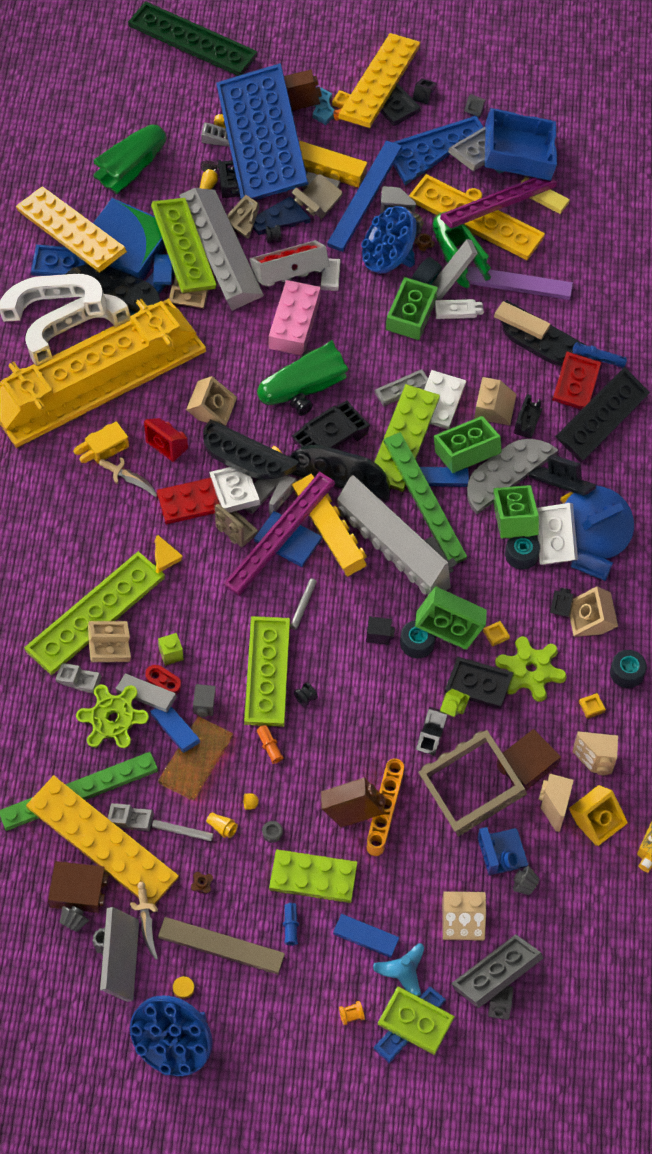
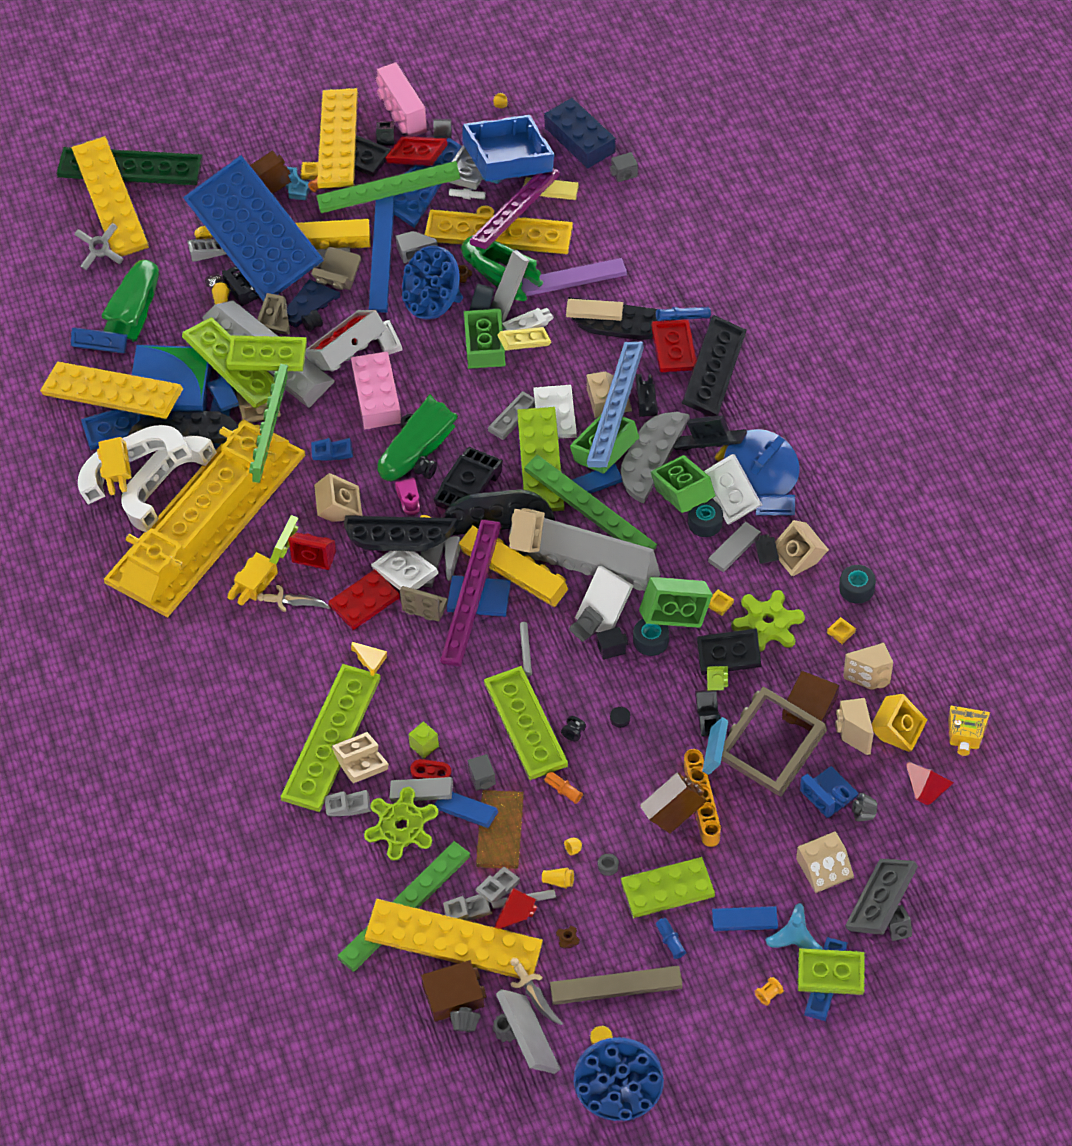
camera: 20 degrees left, 5 degrees down
(37, 295) = (115, 463): none -> yellow hinge
(86, 181) = (98, 340): none -> blue tile
(125, 93) = (98, 240): none -> light grey bar
(136, 426) = (280, 548): none -> lime plate
(160, 60) = (110, 196): none -> yellow plate
(167, 809) = (498, 886): none -> light grey slope
(168, 838) = (516, 909): none -> red slope
(176, 314) = (267, 427): none -> bright green plate
(213, 248) = (266, 353): none -> lime plate
(229, 356) = (328, 450): none -> blue slope
(273, 423) = (408, 495): none -> dark pink piece
(352, 498) = (526, 530): none -> tan brick
(353, 701) = (620, 717): none -> black tile
(365, 605) = (586, 624): none -> dark grey bracket
(390, 589) = (606, 596): none -> white tile
(398, 140) = (388, 187): none -> bright green plate
(419, 765) = (715, 746): none -> dark azure tile
(441, 117) = (416, 151): none -> red plate
(446, 322) = (524, 338): none -> light yellow tile
(450, 67) = (401, 100): none -> bright pink brick
(466, 172) = (467, 193): none -> white bar
(491, 415) = (615, 405): none -> medium blue plate
(535, 587) = (734, 547): none -> light grey tile
(539, 99) = (500, 100): none -> yellow hinge
(593, 154) = (579, 132): none -> dark blue brick
(594, 883) = (926, 783): none -> red slope
(616, 200) = (624, 167): none -> dark grey brick

